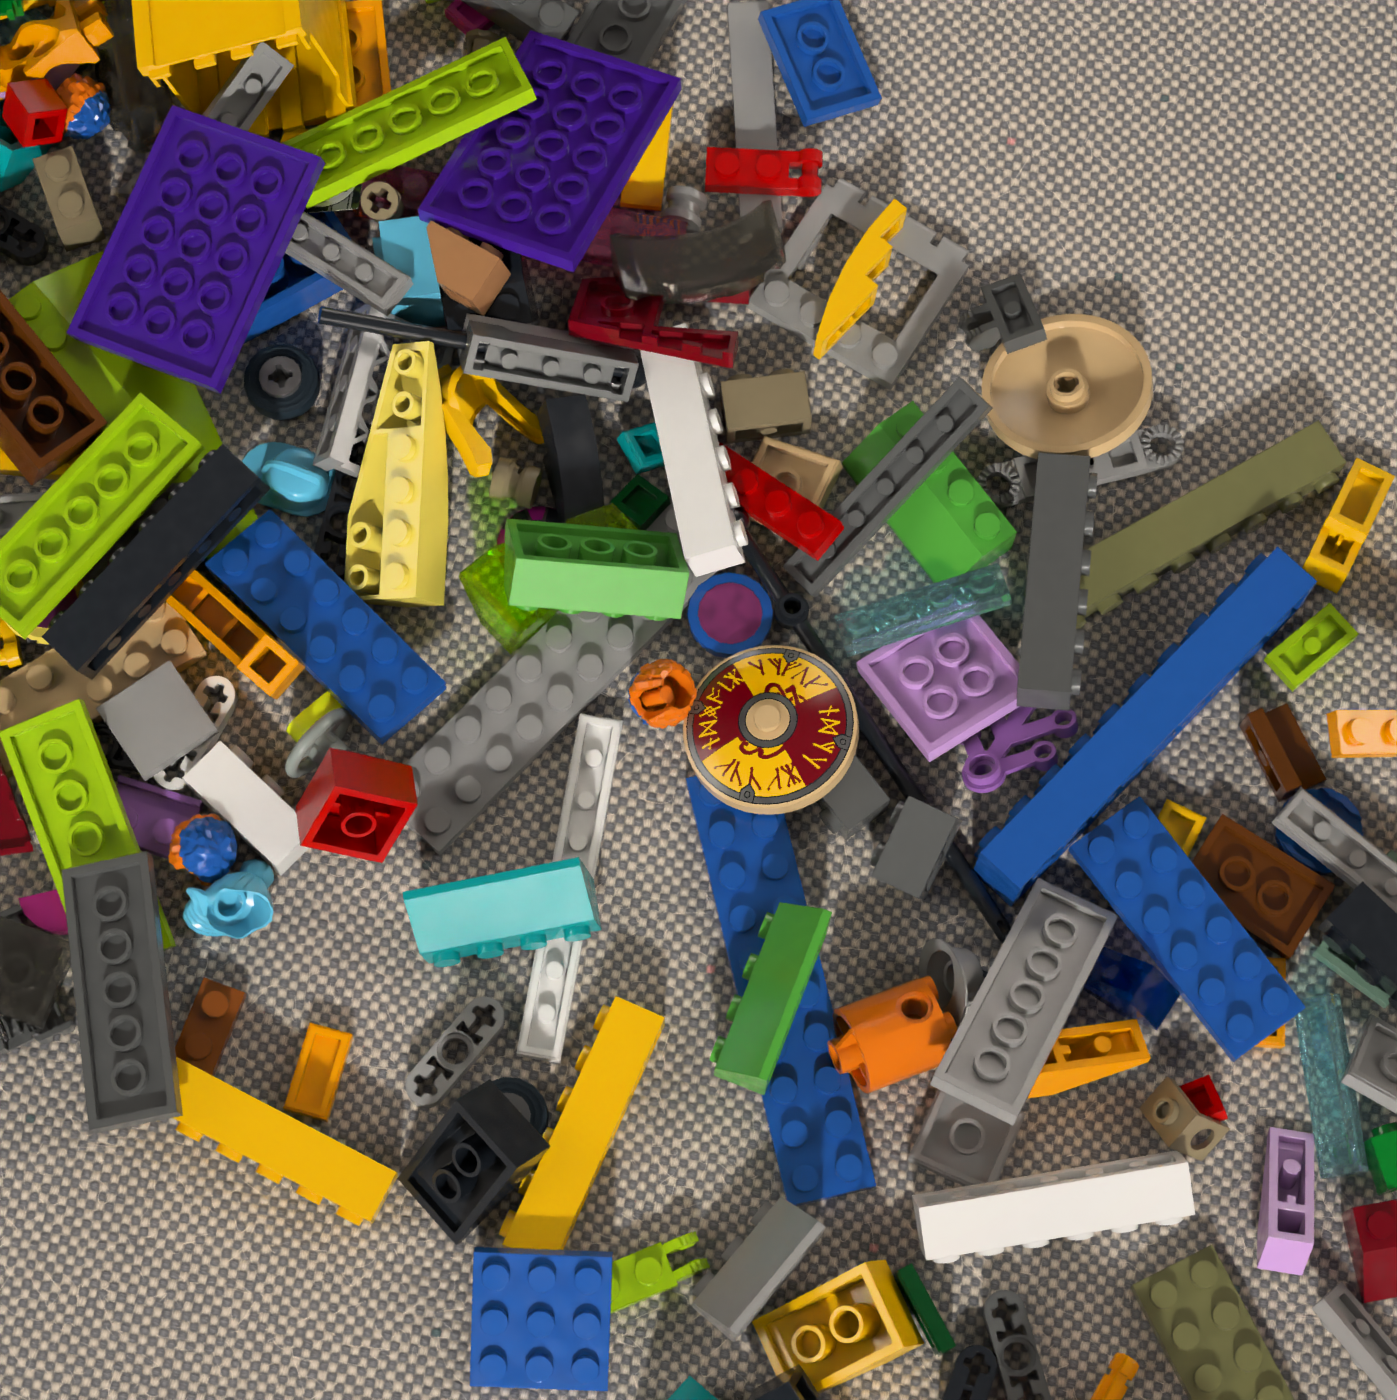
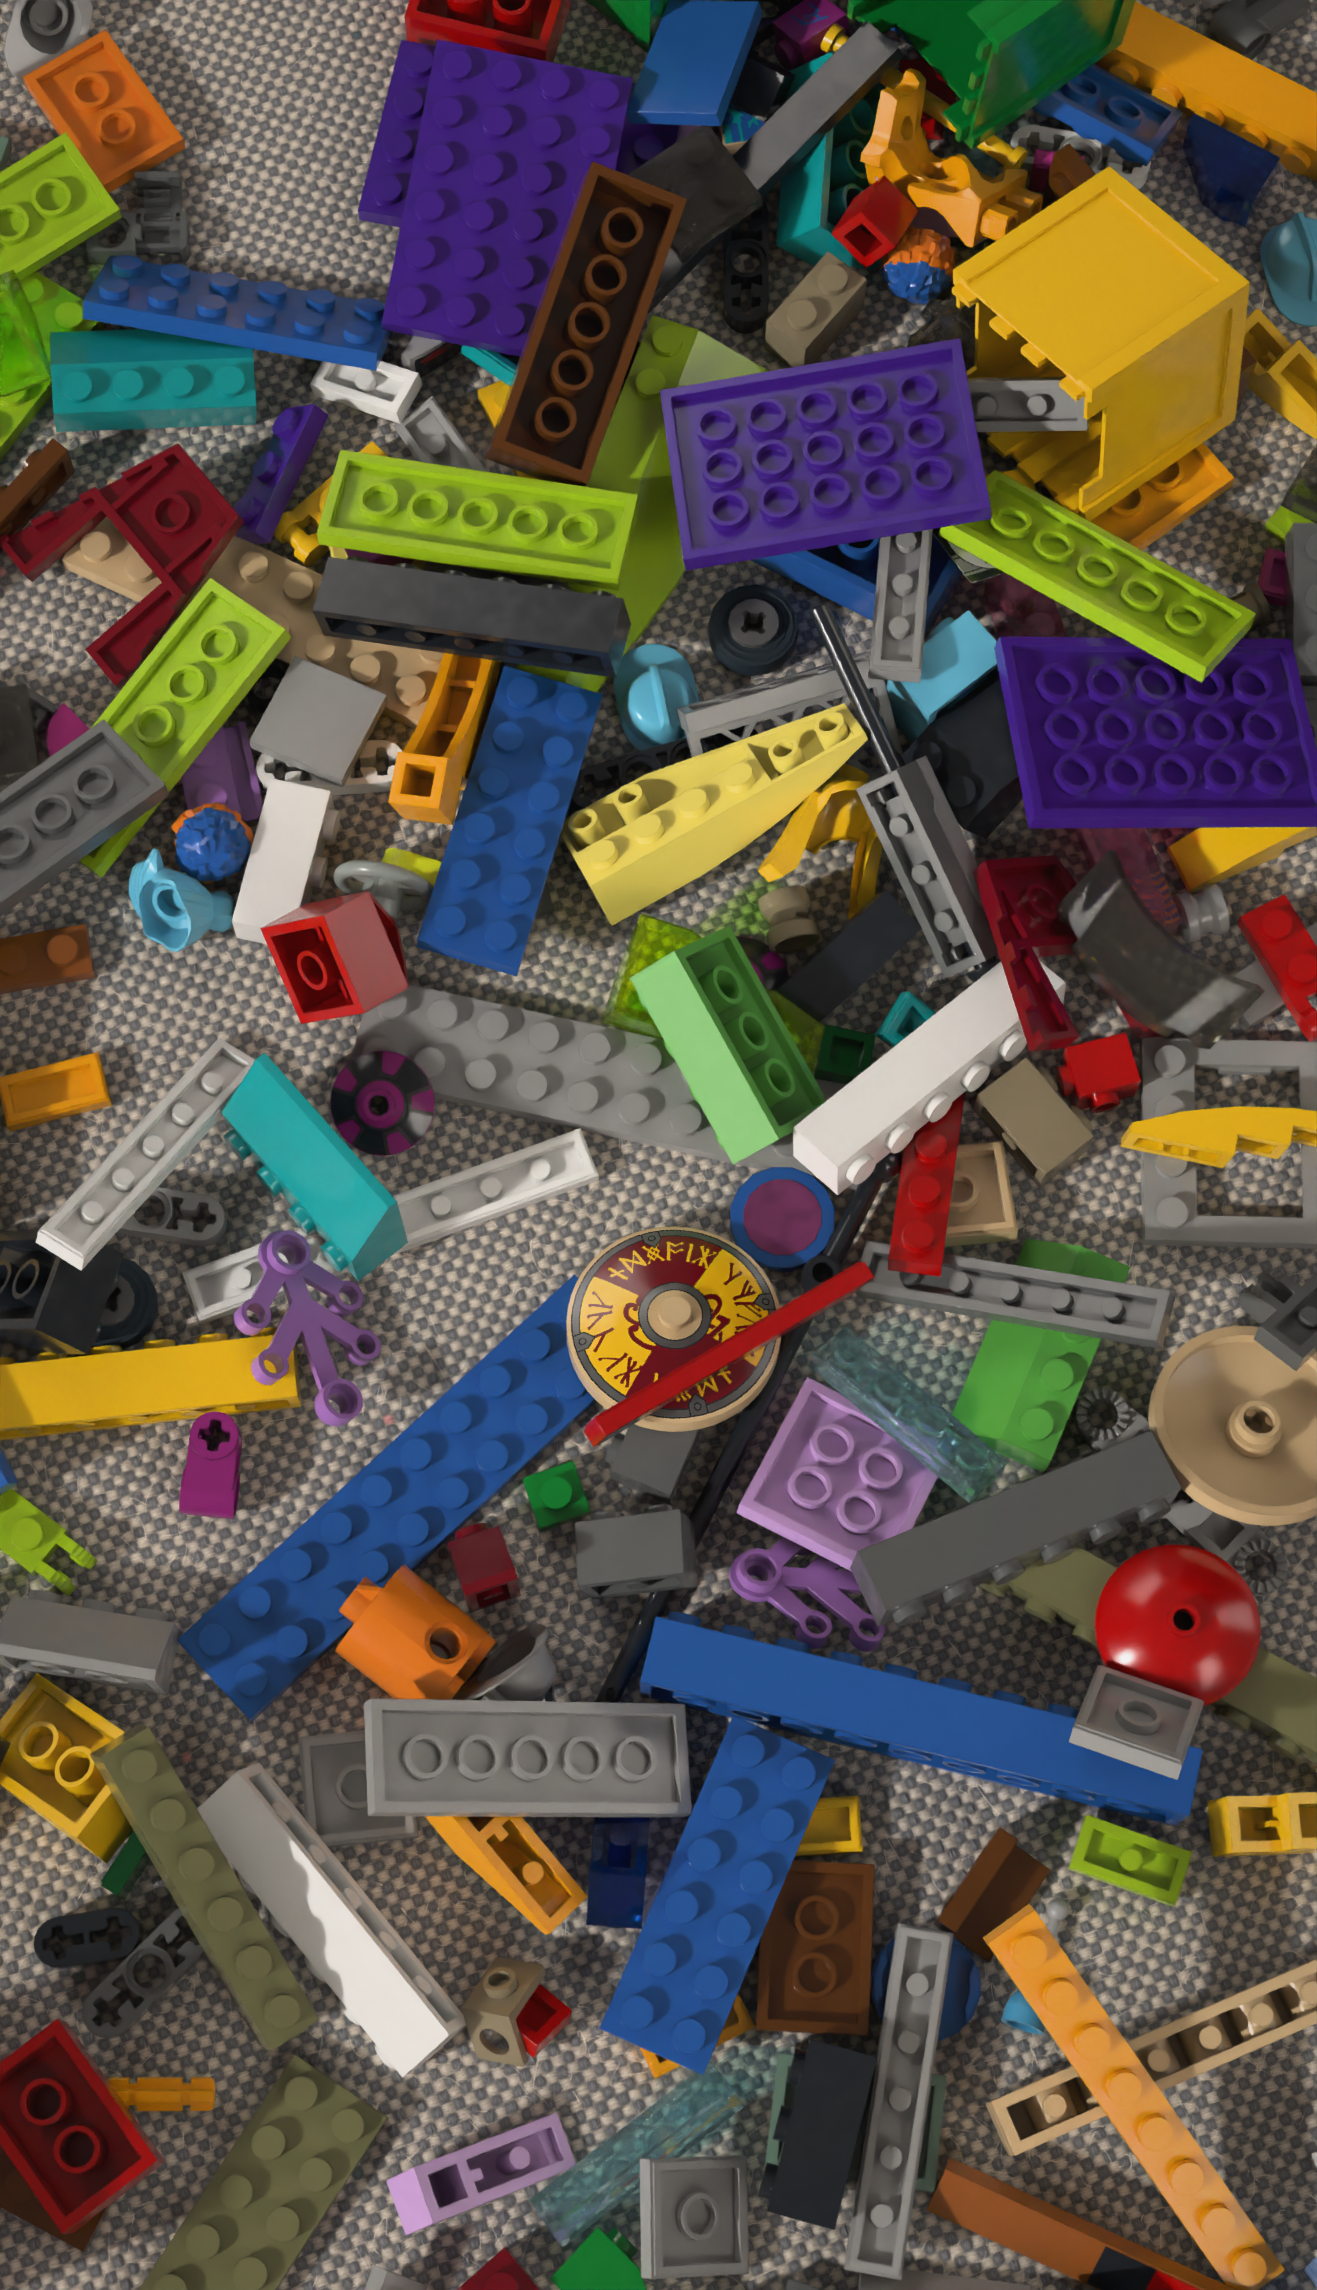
camera: 60 degrees right, 0 degrees up
(381, 190) = (981, 595): dark tan bush -> none
(424, 1020) = (145, 1156): none -> white tile
(455, 836) = (408, 1095): none -> dish
(464, 270) = (967, 724): medium nougat slope -> none
(565, 971) = (309, 1321): none -> medium lavender plant
(662, 693) = (646, 1195): orange piece -> none
(685, 1116) = (211, 1477): none -> magenta piece
(759, 342) = (1098, 1073): none -> red brick
(771, 996) = (377, 1491): bright green slope -> none
(822, 697) = (726, 1354): none -> red tile
(837, 882) = (556, 1496): none -> green plate
(863, 957) = (483, 1566): none -> dark red slope
(987, 1275) = (204, 1887): none -> olive brick
(1174, 543) = (1138, 1628): none -> red dish
(1236, 577) = (1136, 1721): none -> light grey tile
(1372, 771) = (1017, 2010): none -> dark azure hinge

